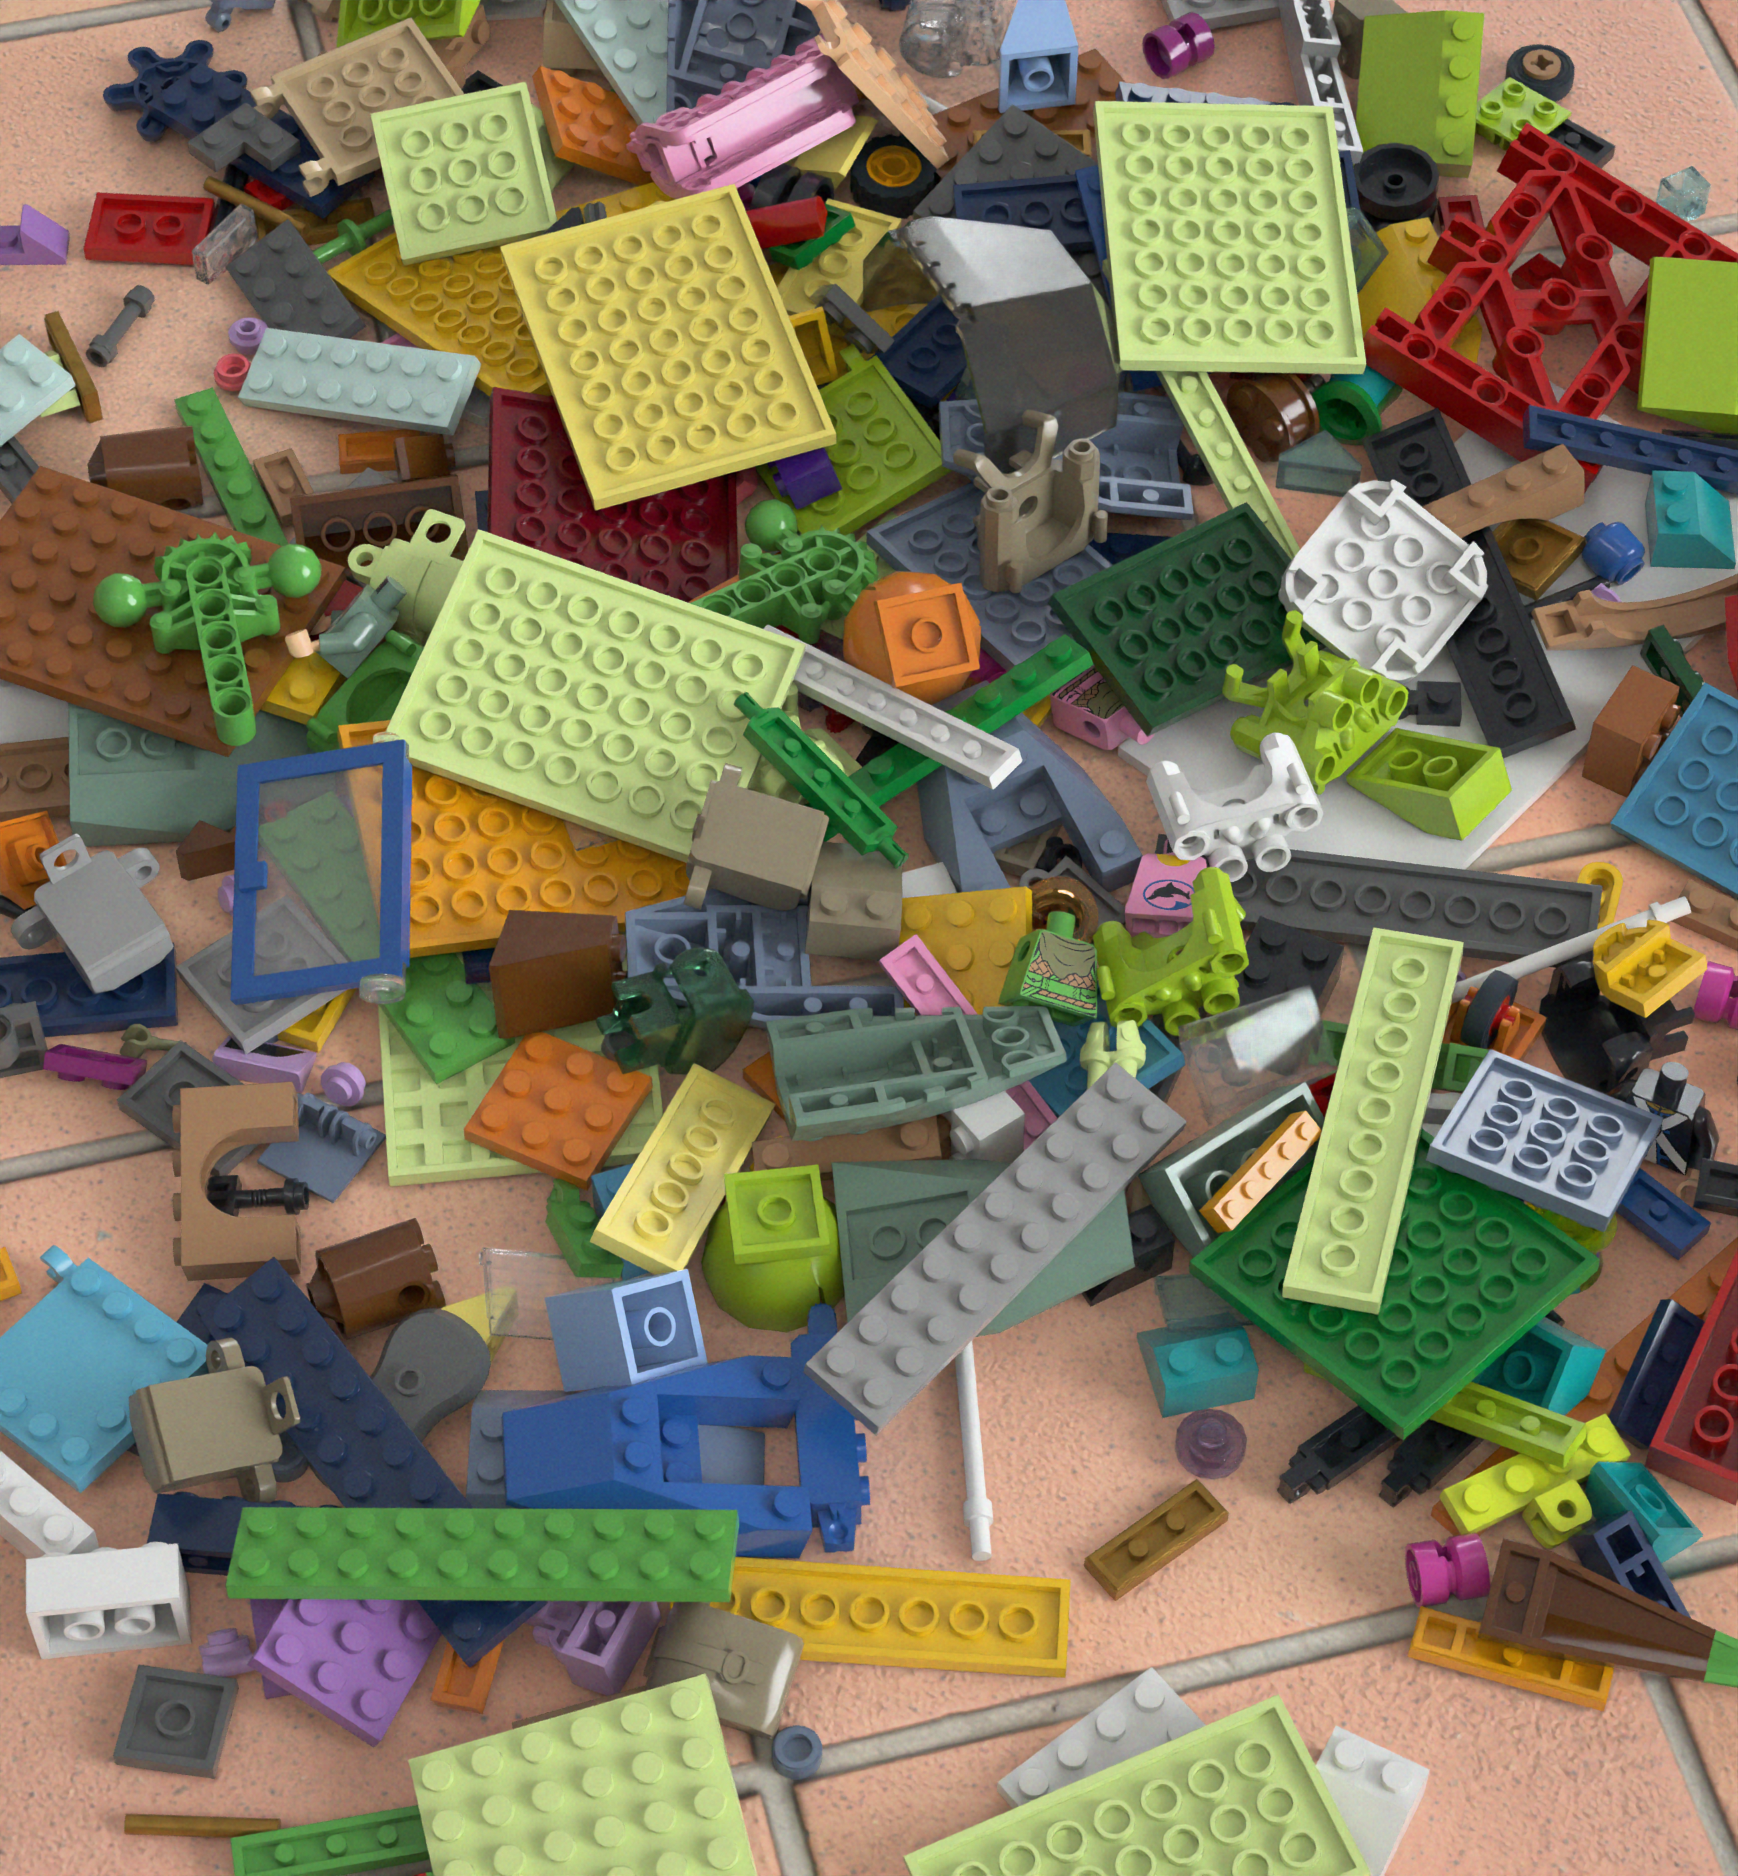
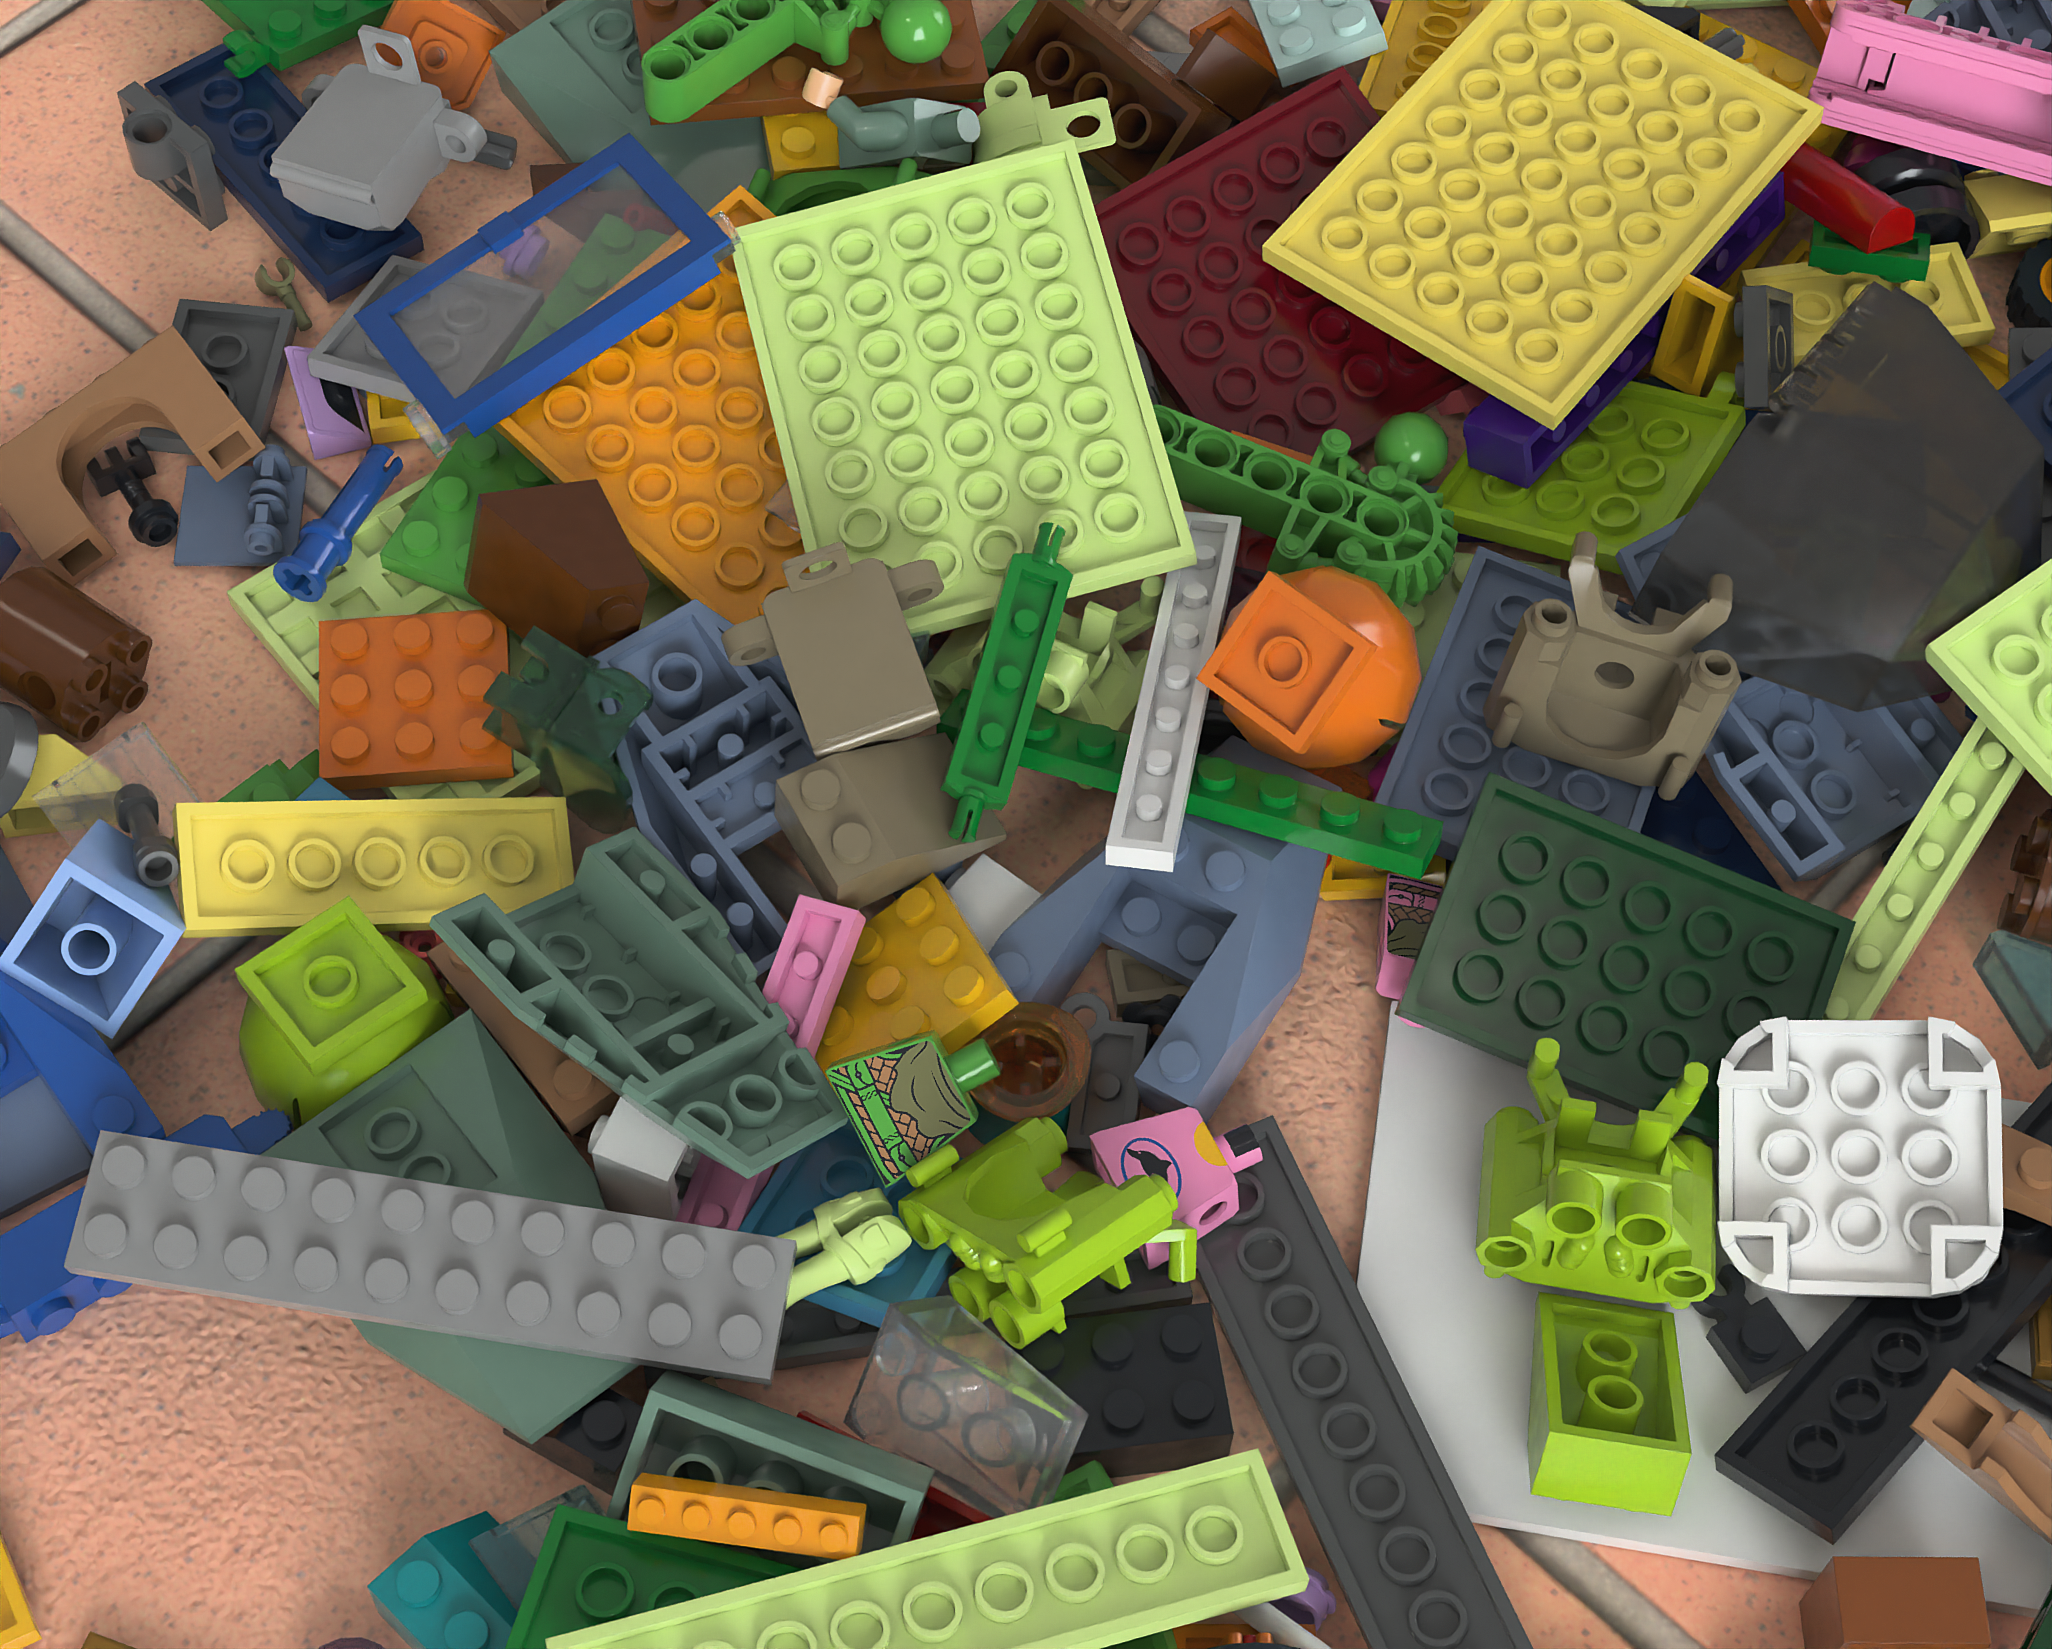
camera: 55 degrees right, 5 degrees up
(77, 1063) = (217, 255): magenta plate -> none
(343, 1084) = (329, 480): lavender plate -> none
(402, 1096) = (327, 540): none -> blue pin
(616, 1266) = (153, 854): none -> dark grey bar
(977, 1508) = (101, 1464): white bar -> none
(1274, 802) = (1287, 1134): white piece -> none

